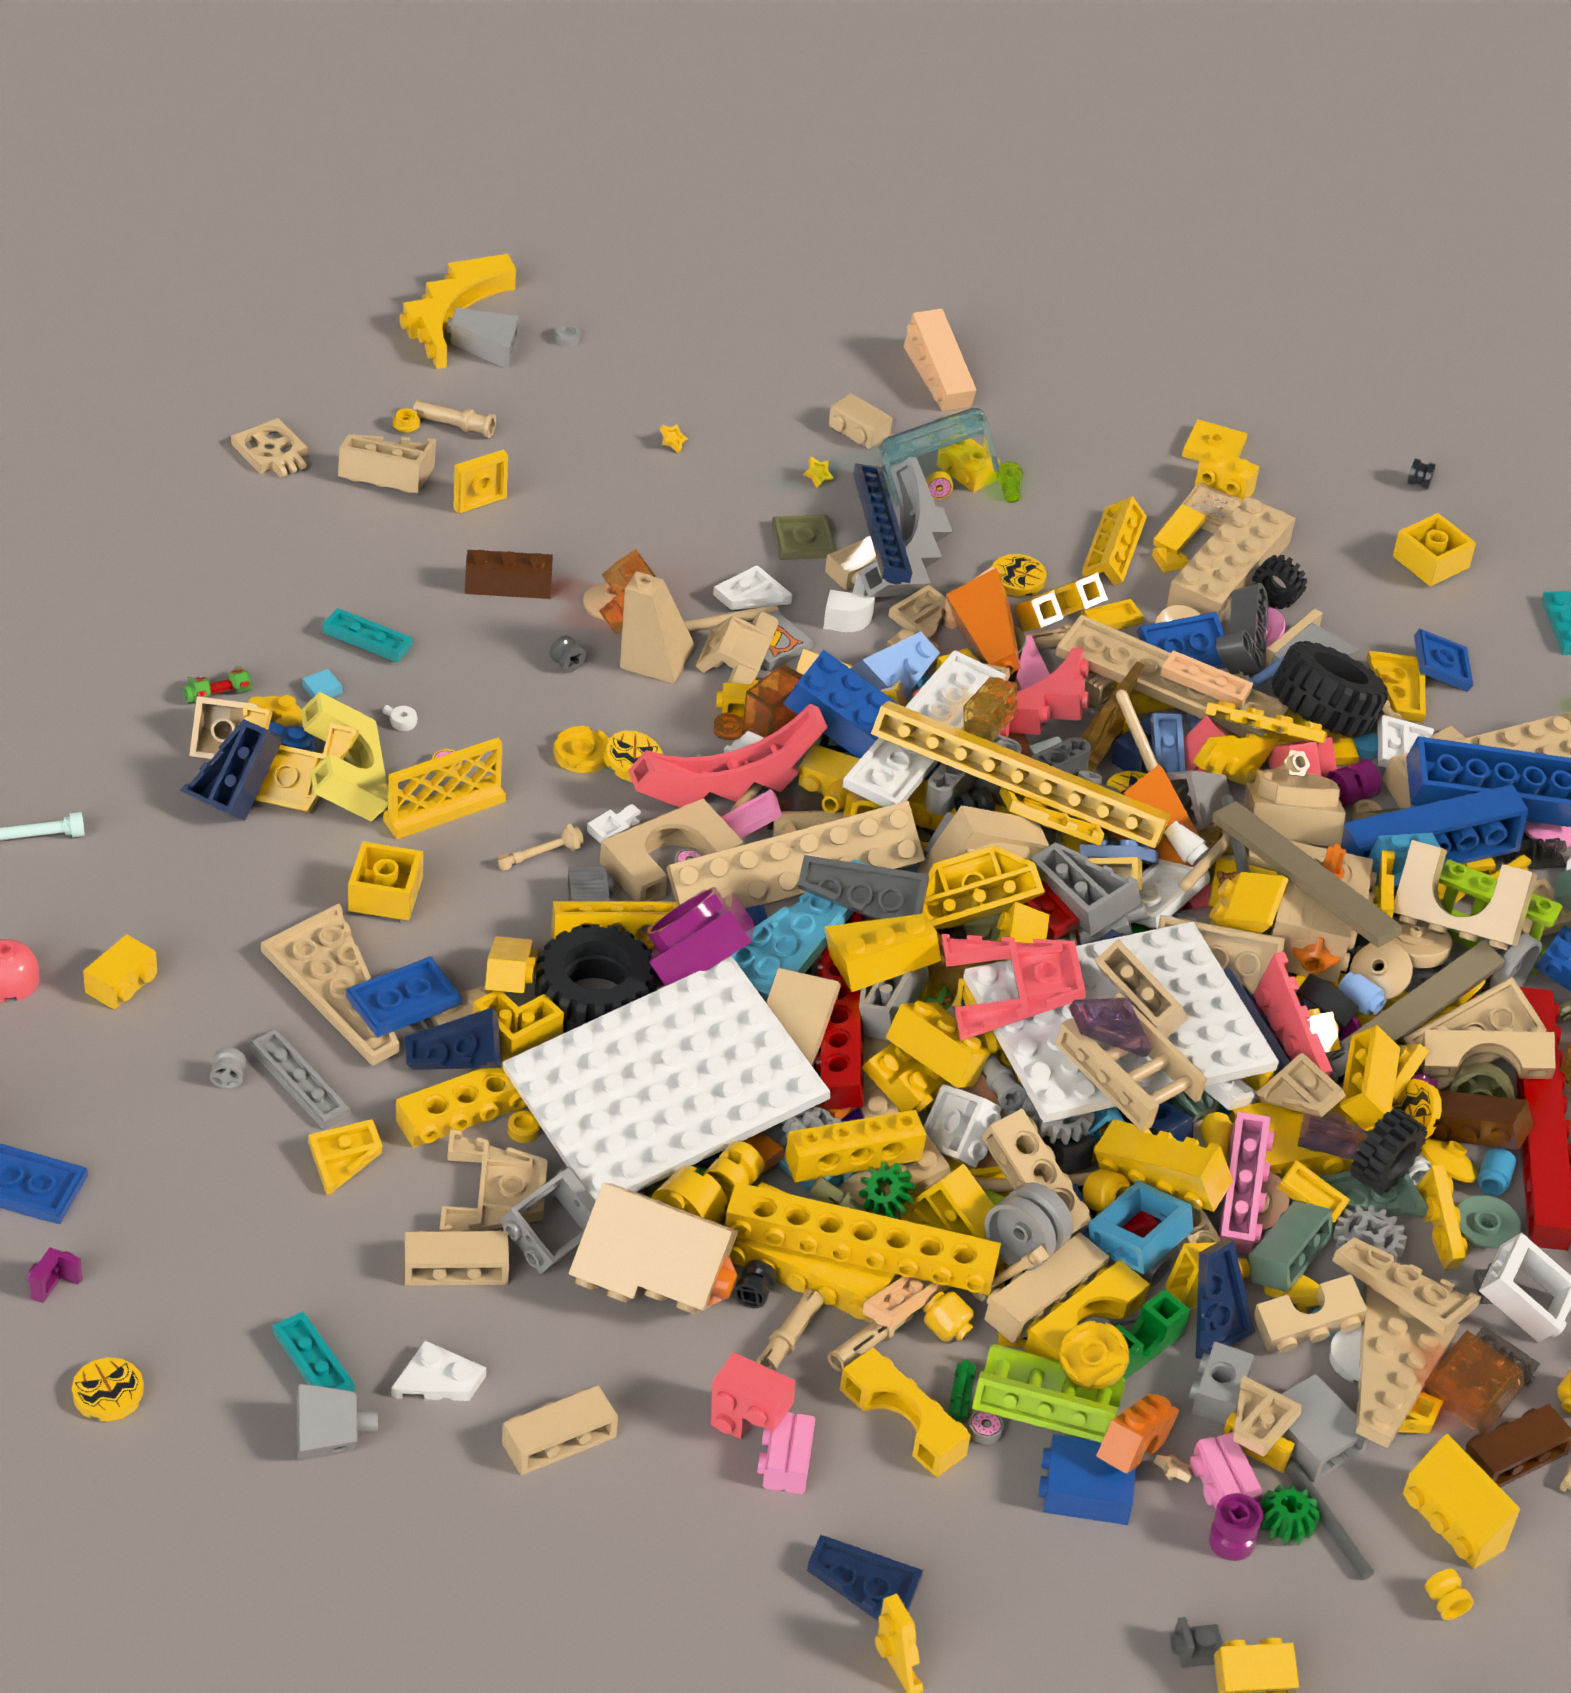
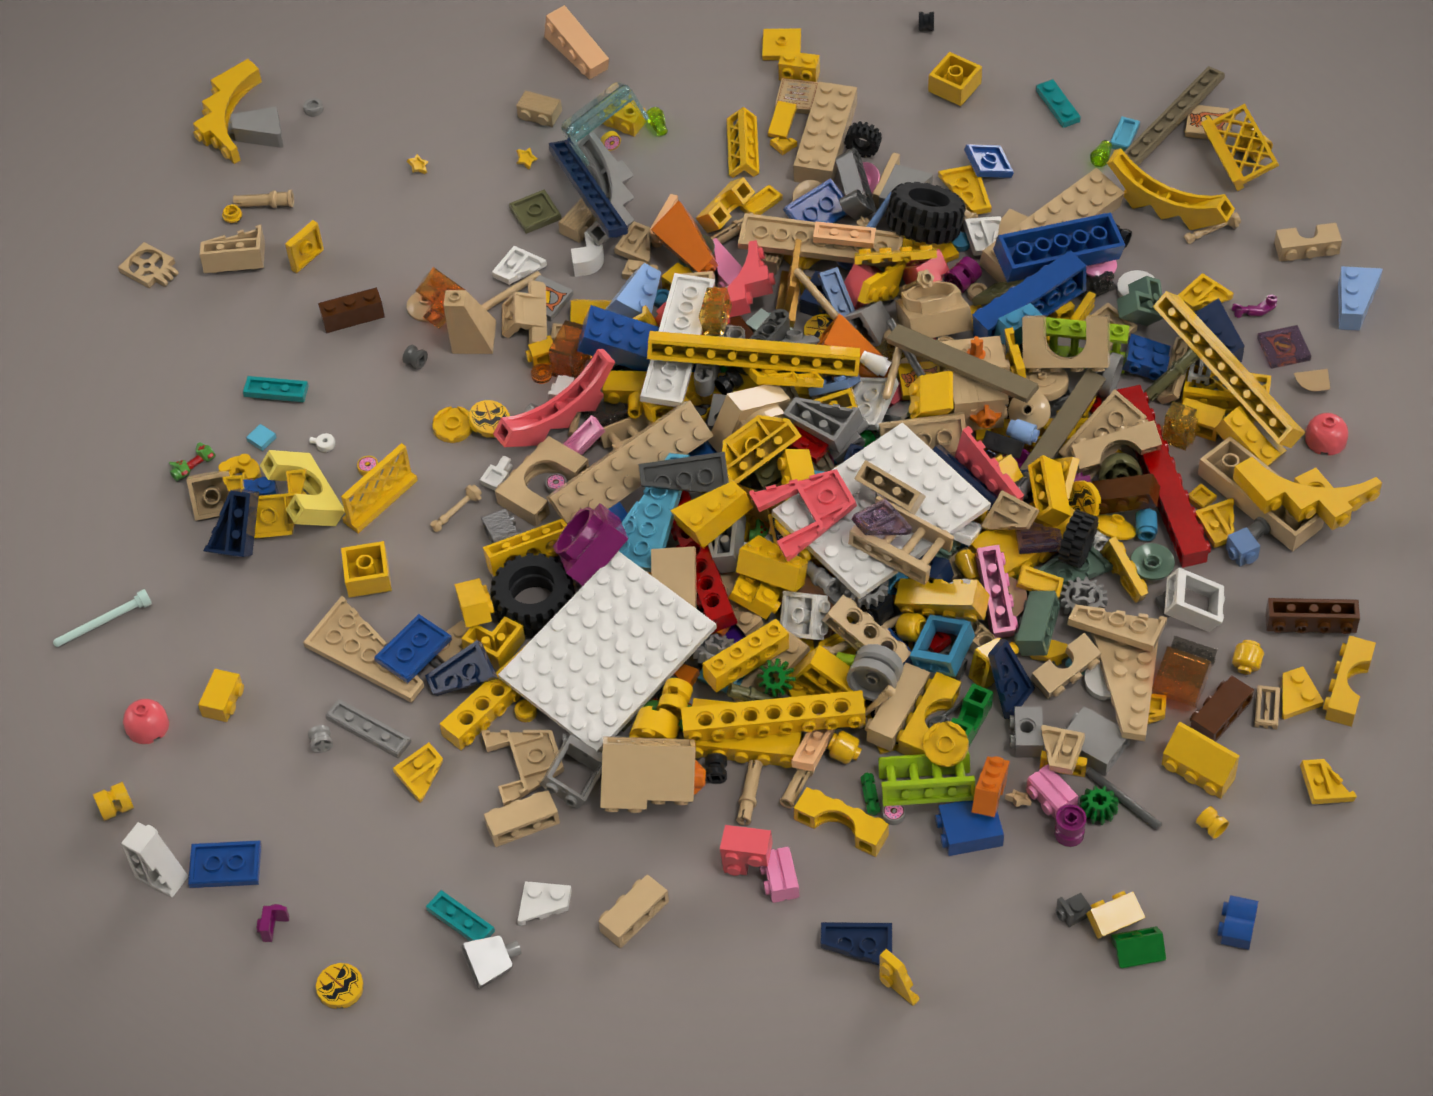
camera: 10 degrees left, 10 degrees up
(1021, 574) = (690, 190): yellow tile -> none

